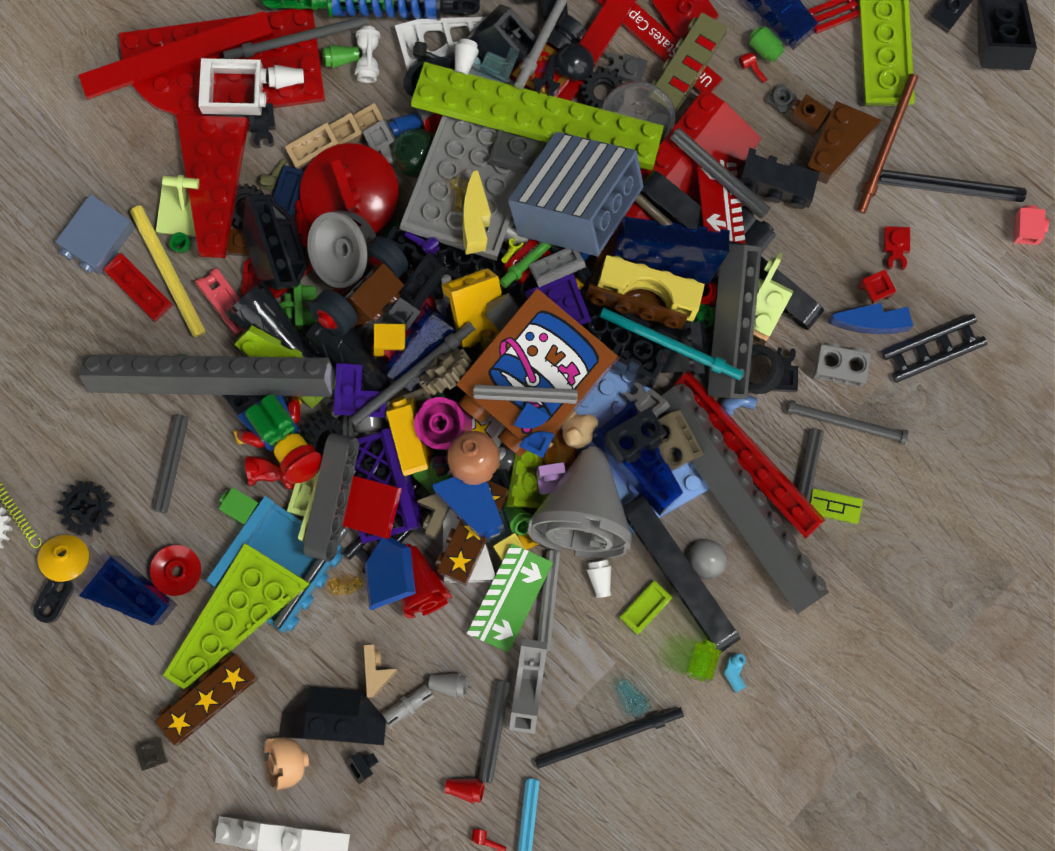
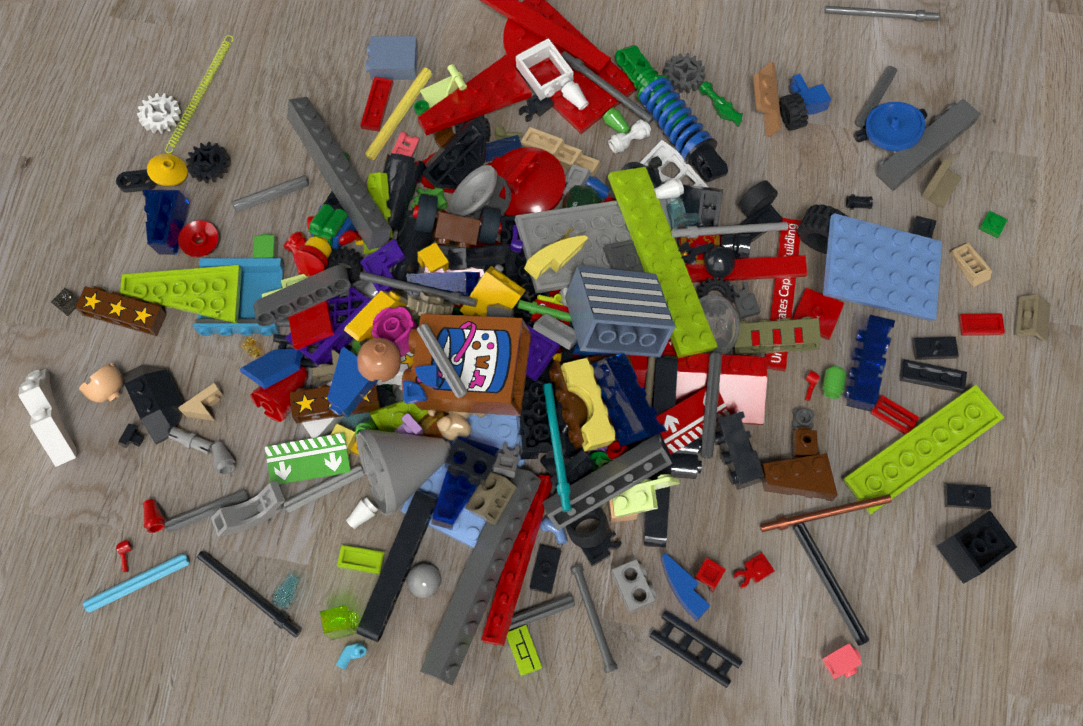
camera: 60 degrees right, 10 degrees down
(771, 436) = (545, 570): none -> black plate

